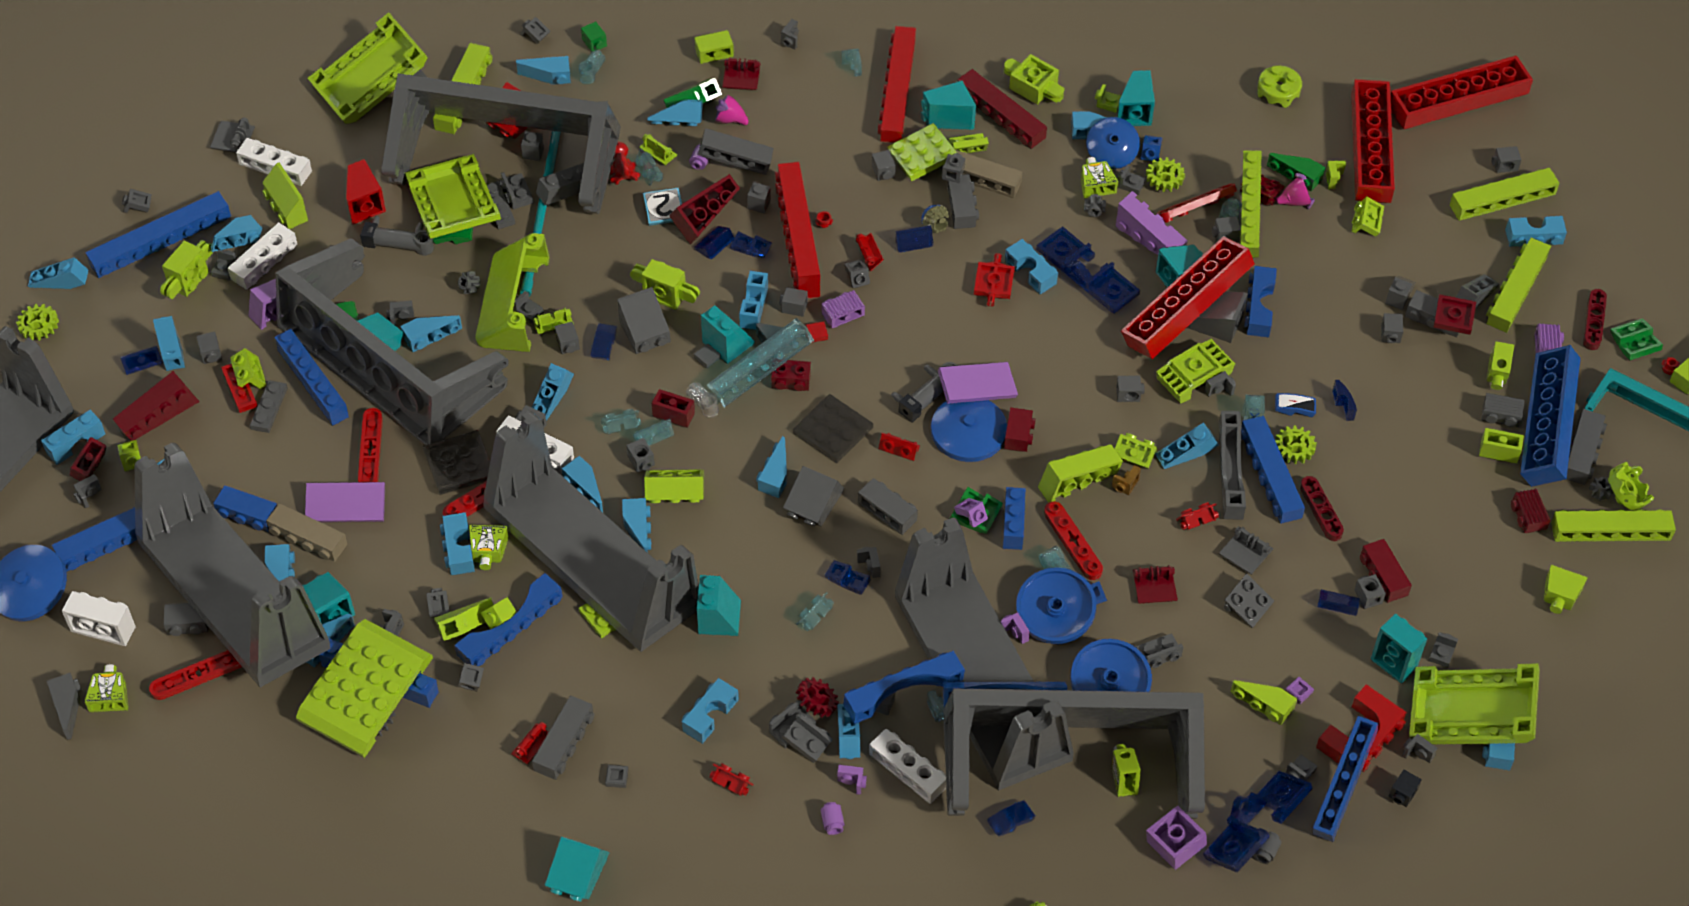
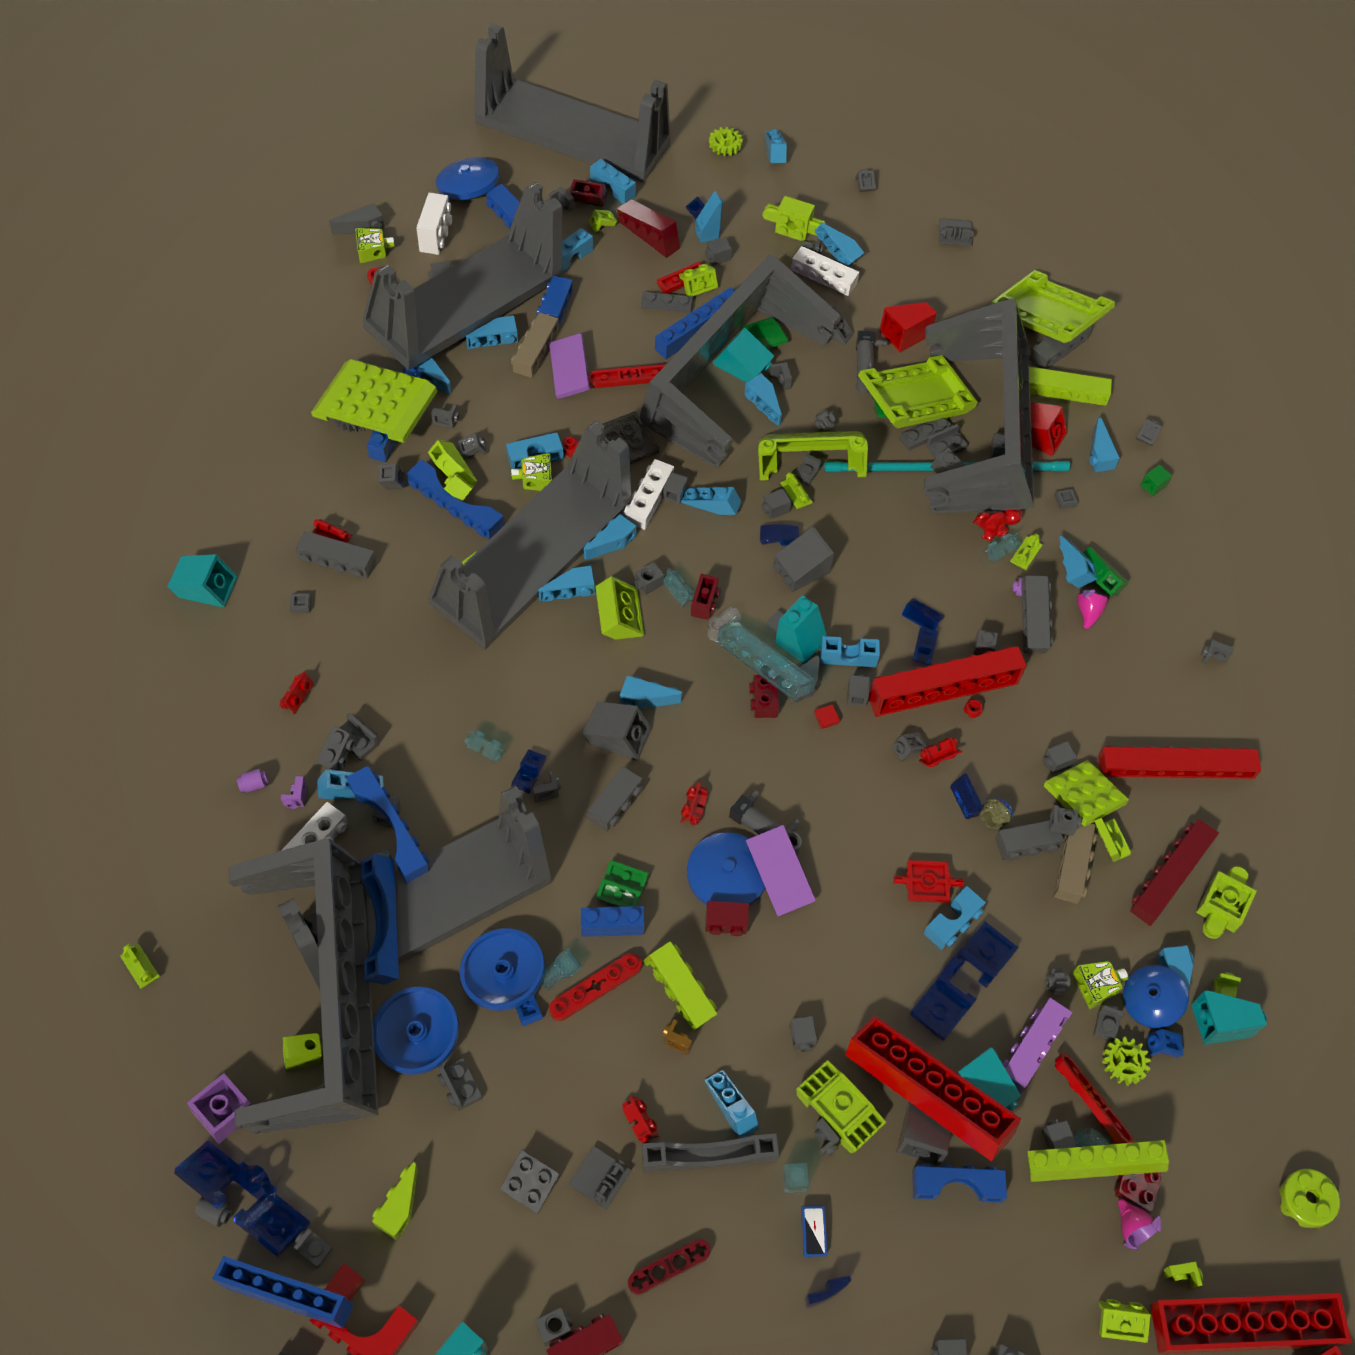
camera: 80 degrees right, 5 degrees up
(158, 234) = (833, 200): blue brick -> none
(264, 157) = (932, 262): white brick -> none
(284, 197) = (890, 275): lime slope -> none
(329, 598) = (463, 365): teal slope -> none
(589, 68) = (1112, 481): clear light blue piece -> none
(613, 421) = (692, 564): clear light blue hinge -> none
(661, 204) = (956, 564): slope -> none
(666, 282) = (852, 571): lime brick -> none
(701, 209) = (954, 594): dark red wedge -> none
(714, 46) = (1176, 584): lime brick -> none
(717, 607) = (475, 655): teal slope -> none
(717, 697) = (355, 657): dark azure arch -> none
(741, 74) = (1148, 614): dark red hinge -> none
(817, 697) = (377, 761): dark red gear -> none
(833, 428) = (708, 742): clear smoke plate -> none
(842, 309) = (857, 735): medium lavender brick -> none
(853, 58) = (1198, 717): clear light blue bracket -> none
(949, 107) = (1155, 812): teal slope -> none
(973, 510) = (613, 876): medium lavender bracket -> none
(1011, 817) = (252, 944): clear blue slope -> none
(1017, 627) = (474, 933): medium lavender bracket -> none
(1135, 451) = (720, 1045): lime bracket -> none
(1155, 584) = (545, 1076): dark red hinge -> none
(1272, 470) = (713, 1203): blue brick -> none
(1289, 165) = (1177, 1228): green slope -> none
(1295, 444) = (761, 1238): lime gear -> none
(1299, 689) = (418, 1244): medium lavender tile -> none
(1338, 602) = (540, 1289): clear blue slope -> none

